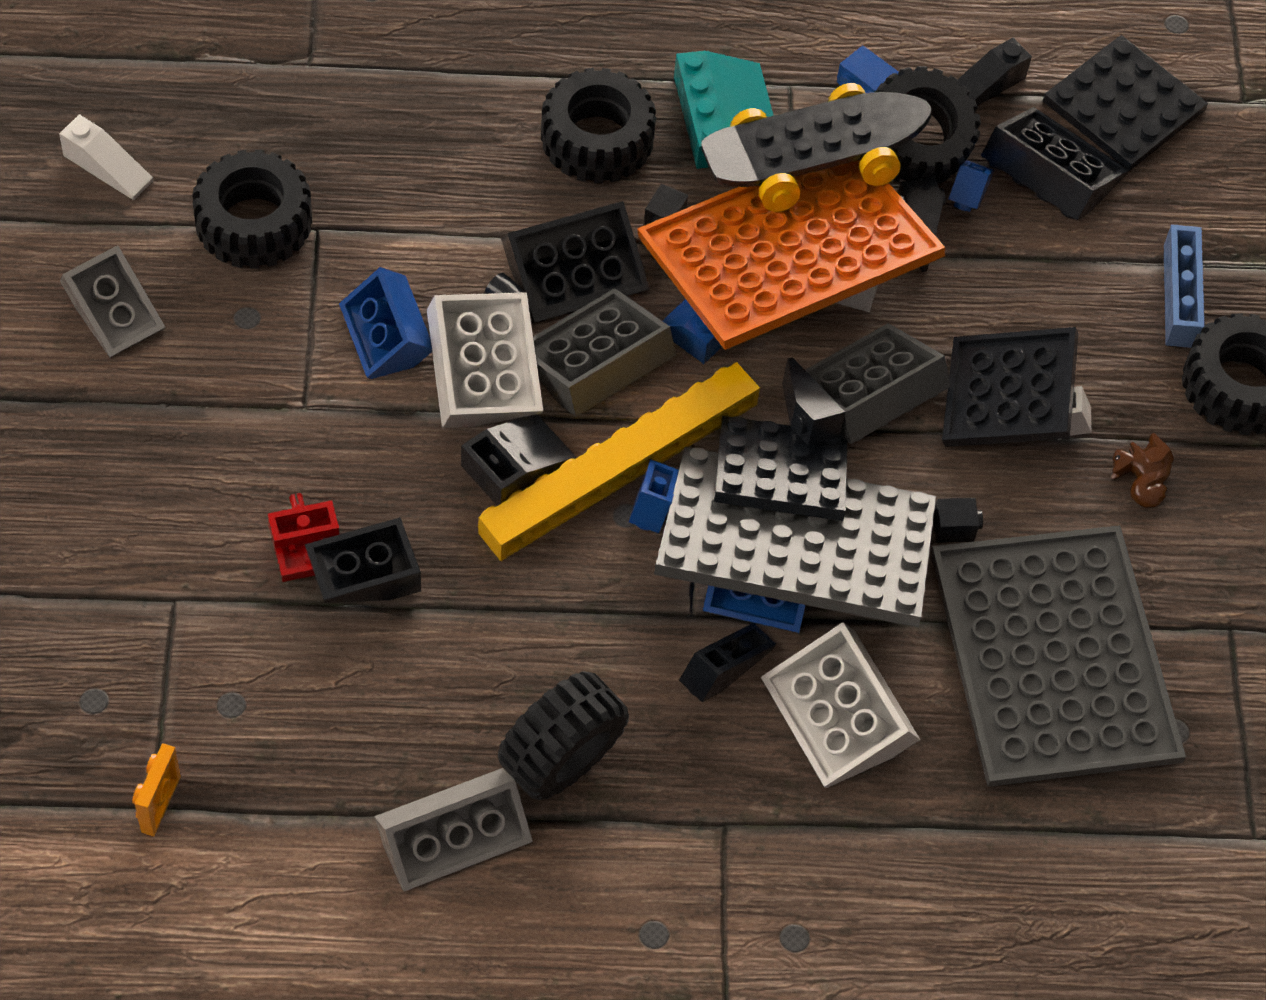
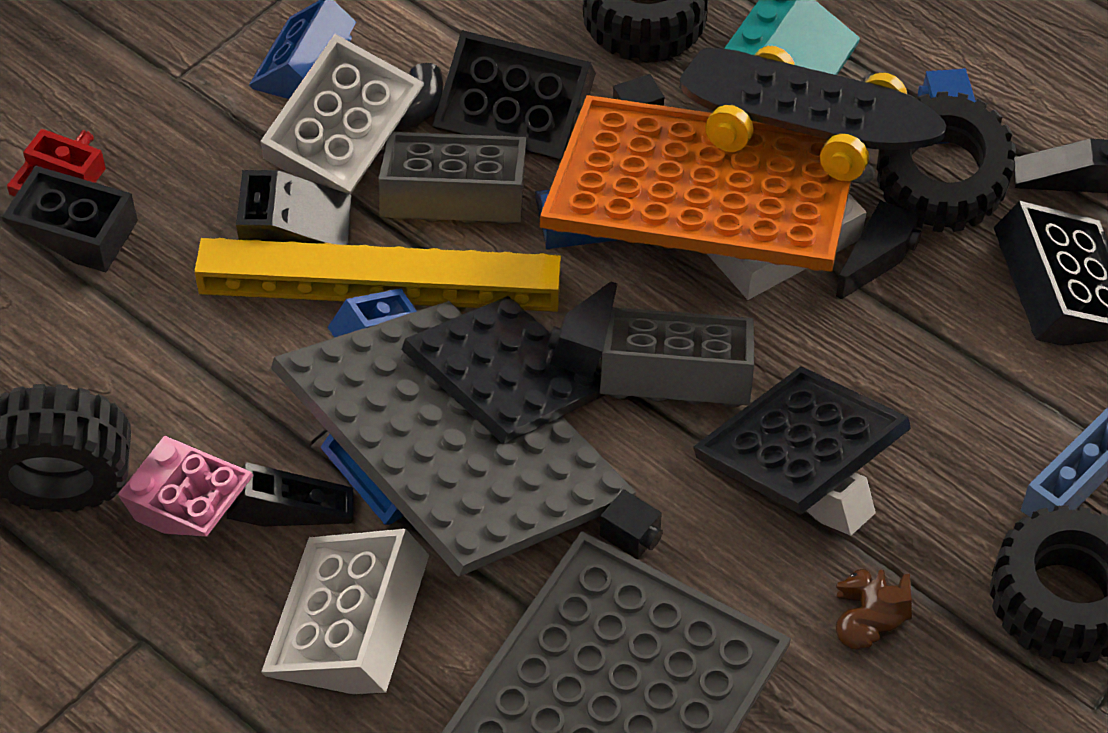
camera: 45 degrees right, 5 degrees down
(671, 701) = (182, 489): none -> bright pink slope
(970, 185) = (957, 246): blue slope -> none

